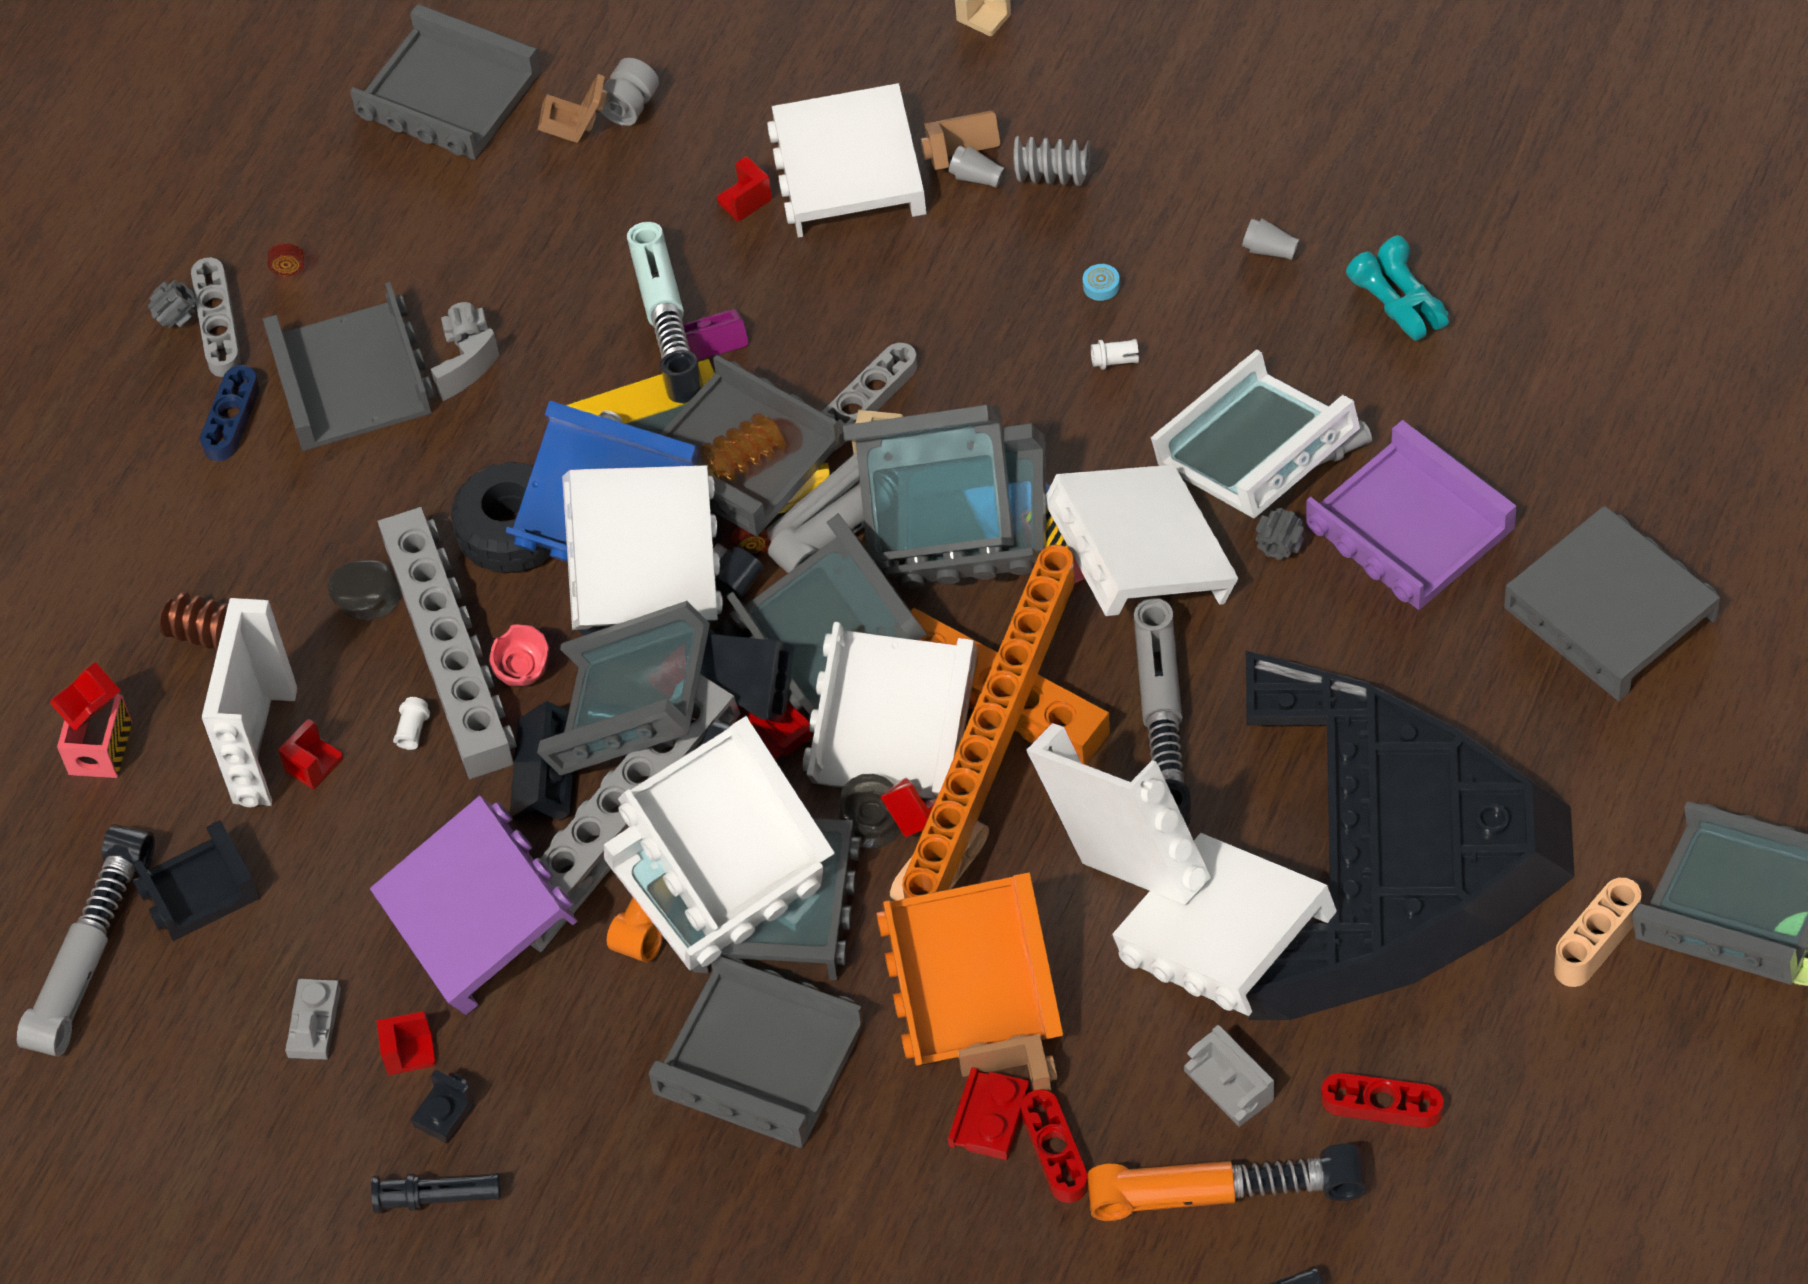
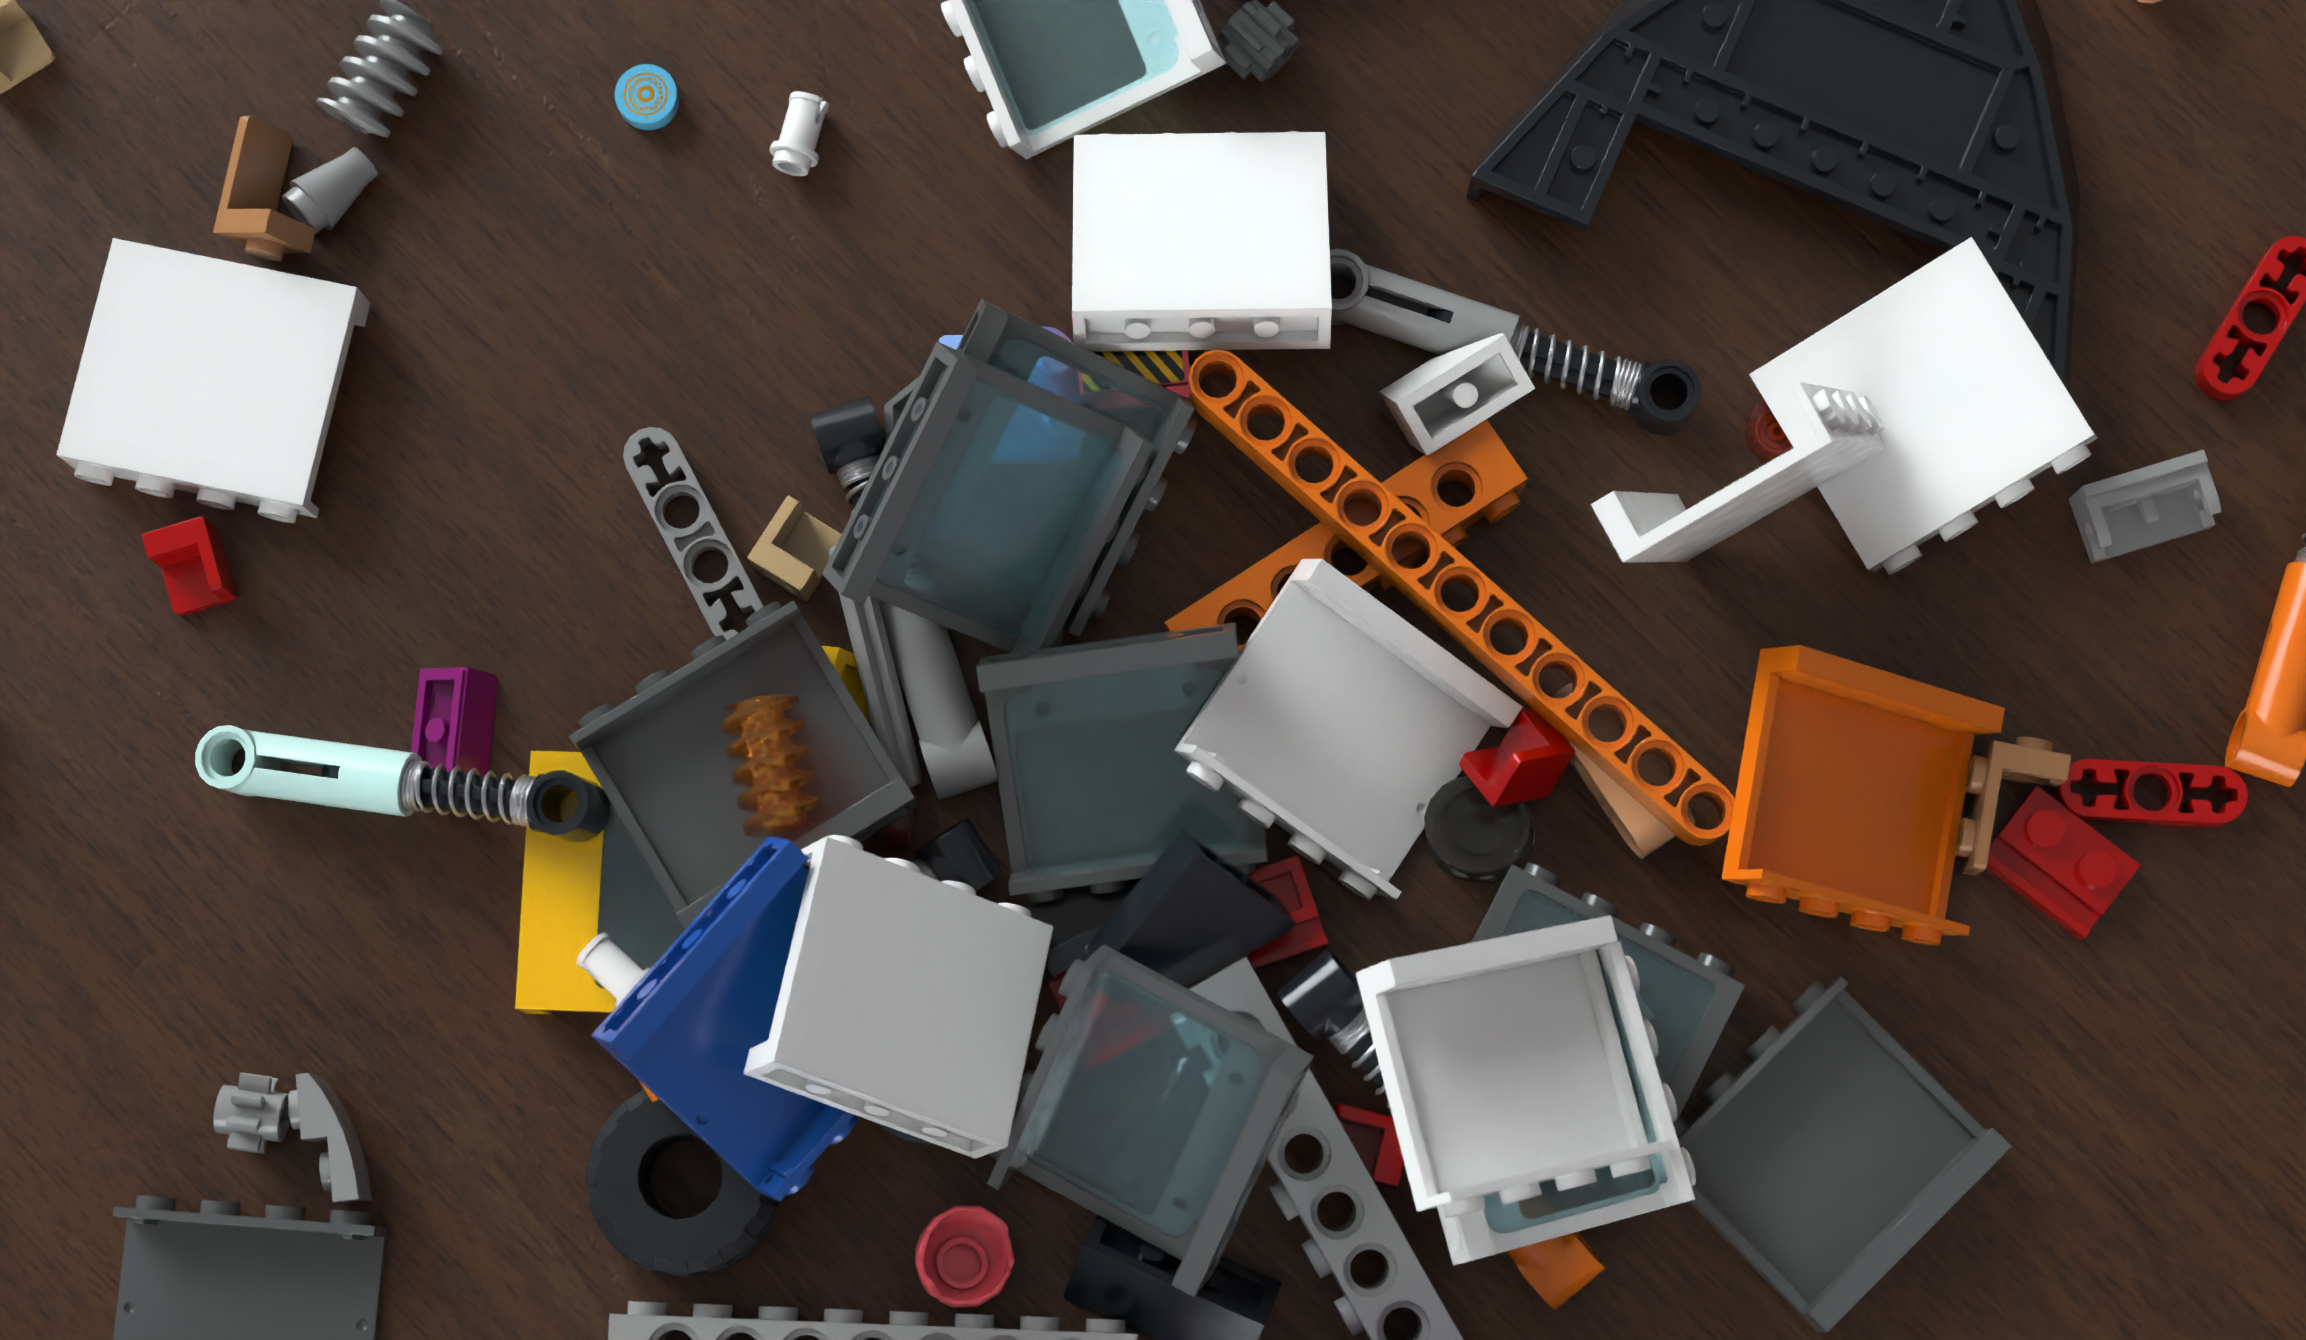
camera: 70 degrees left, 25 degrees up
(1112, 691) = (1456, 392): none -> white slope

